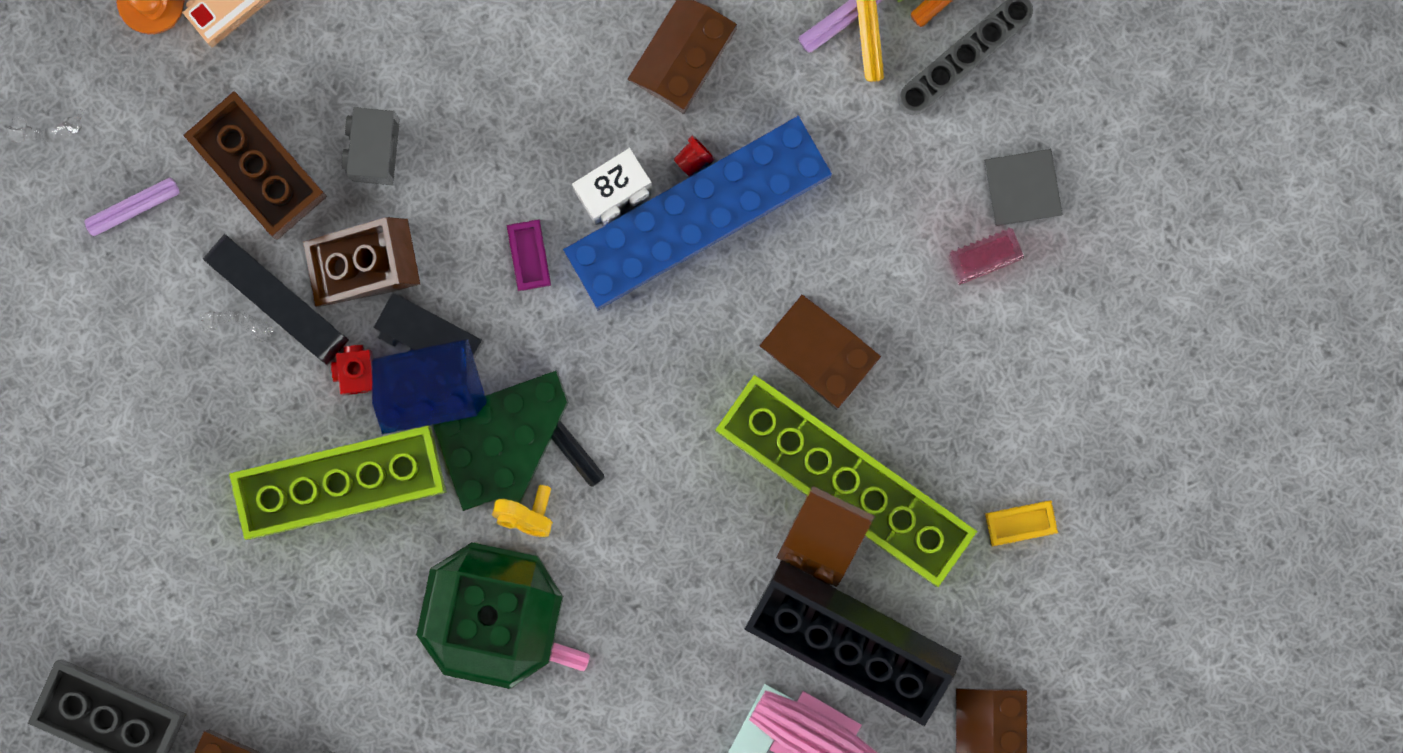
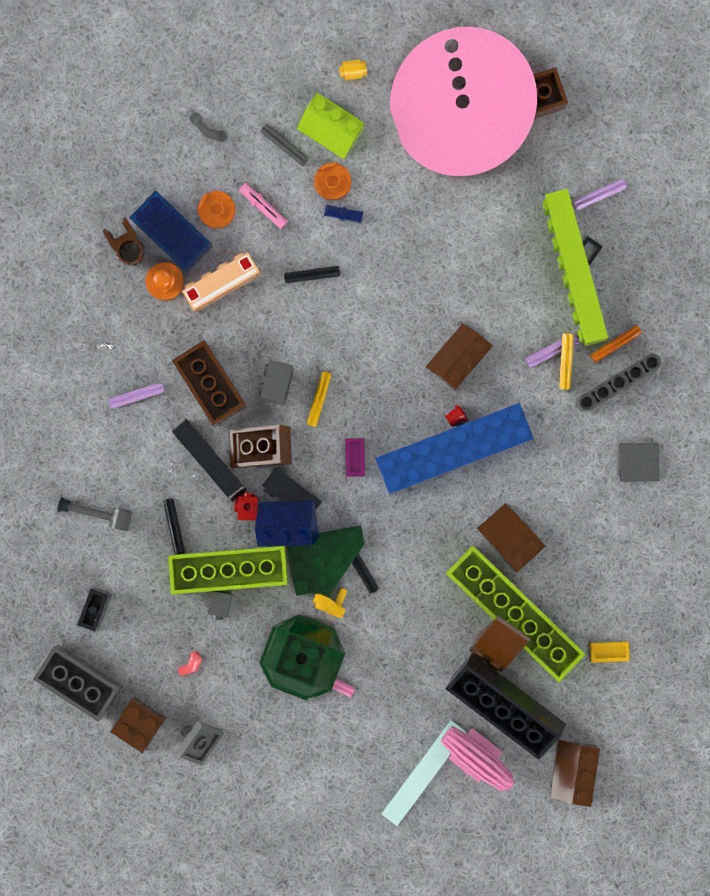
camera: 10 degrees right, 0 degrees up
(116, 587) = (94, 609): none -> black brick
(133, 425) = (118, 518): none -> dark grey piece
(232, 422) = (174, 526): none -> black axle
(302, 657) = (193, 664): none -> coral arm
(332, 546) = (219, 605): none -> dark grey brick
(450, 164) = (319, 399): none -> yellow axle
(613, 187) = (408, 427): white brick -> none
(985, 256) = (612, 498): clear pink brick -> none

